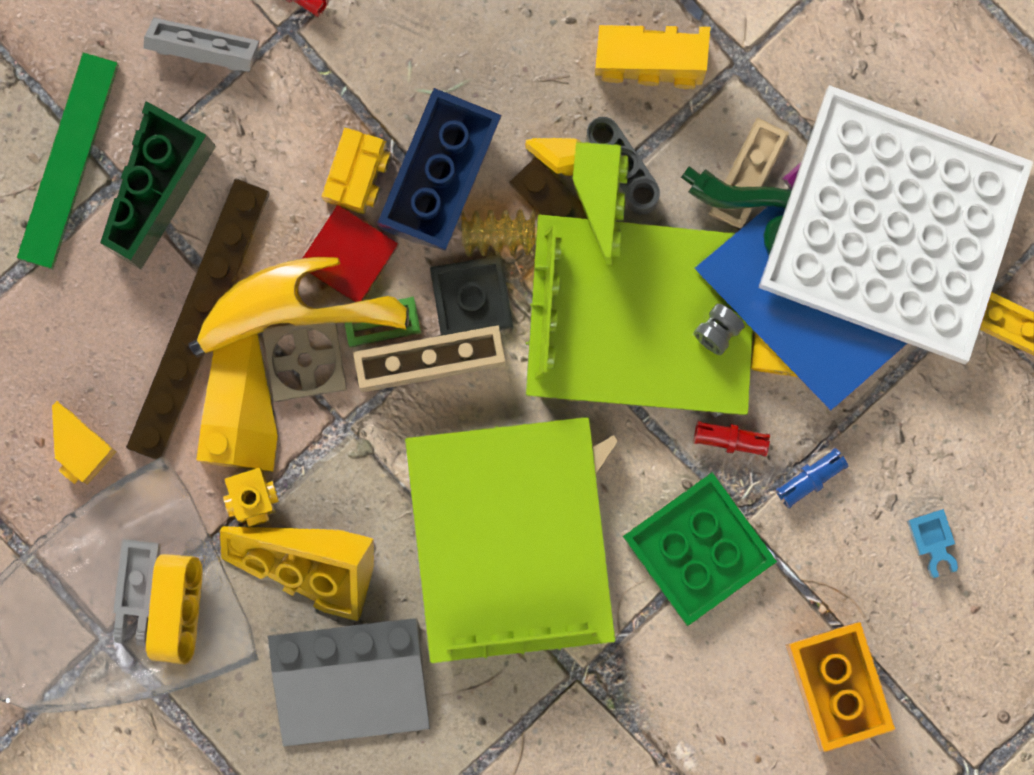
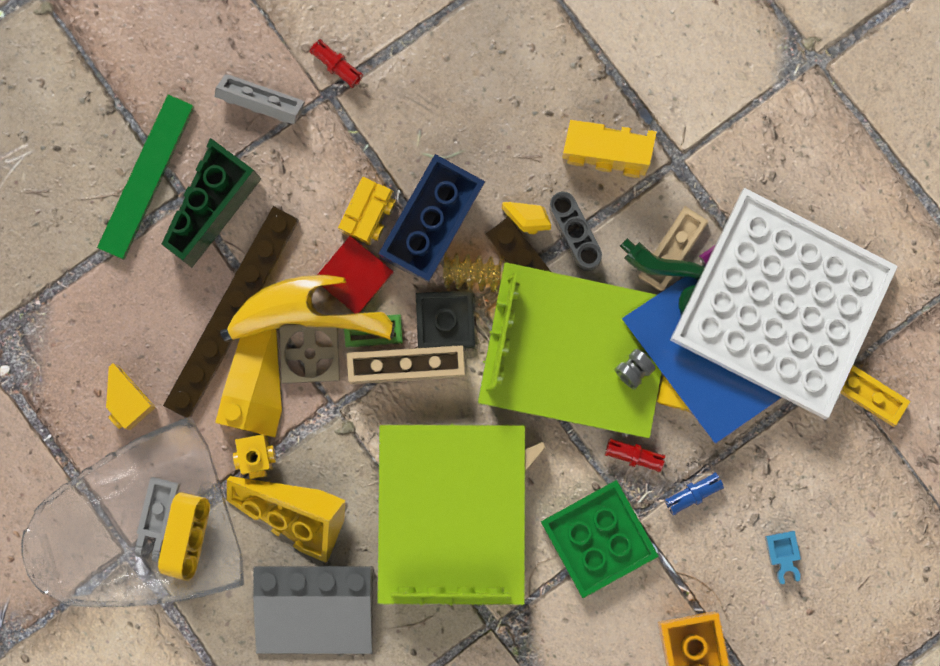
camera: 15 degrees right, 0 degrees up
(597, 183) = (553, 240): lime slope -> none

